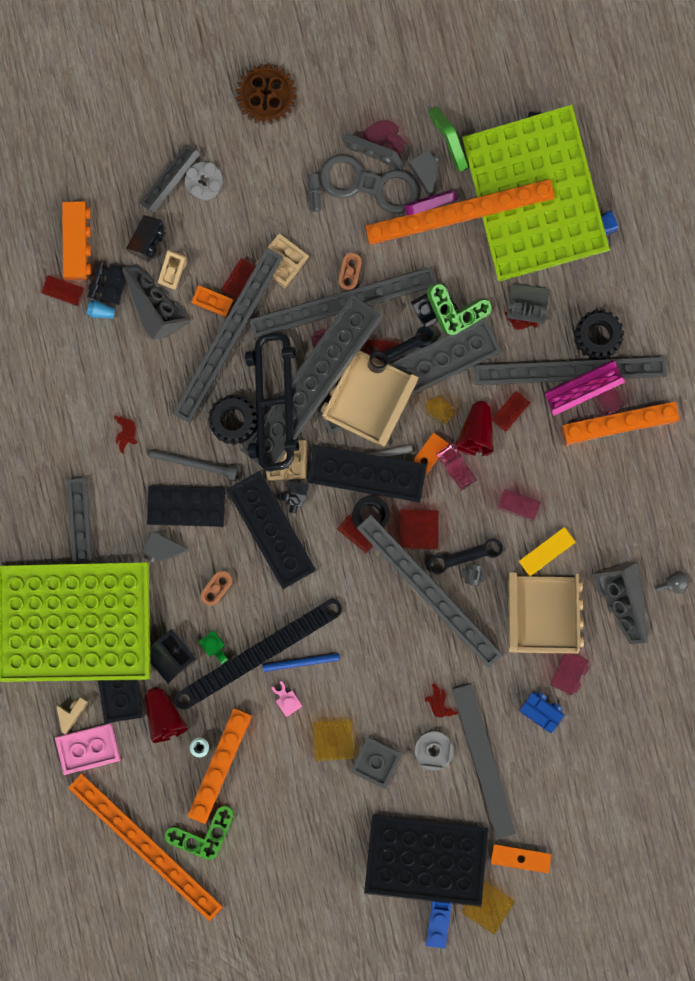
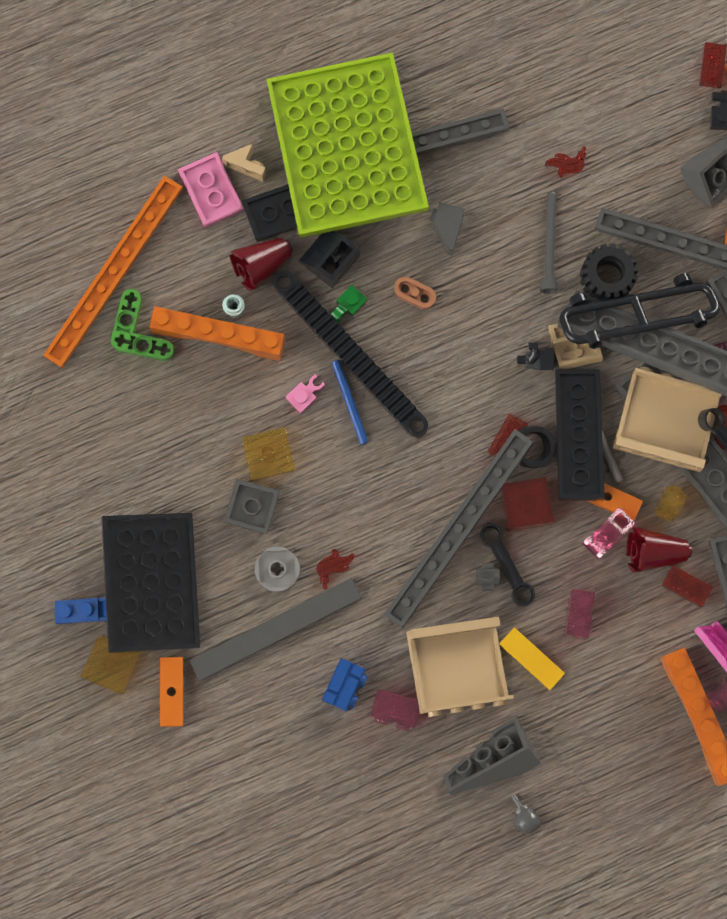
camera: 80 degrees right, 5 degrees down
(100, 310) = (700, 107): dark azure cone -> none
(186, 506) = (500, 243): black plate -> none
(271, 530) = (492, 340): black plate -> none

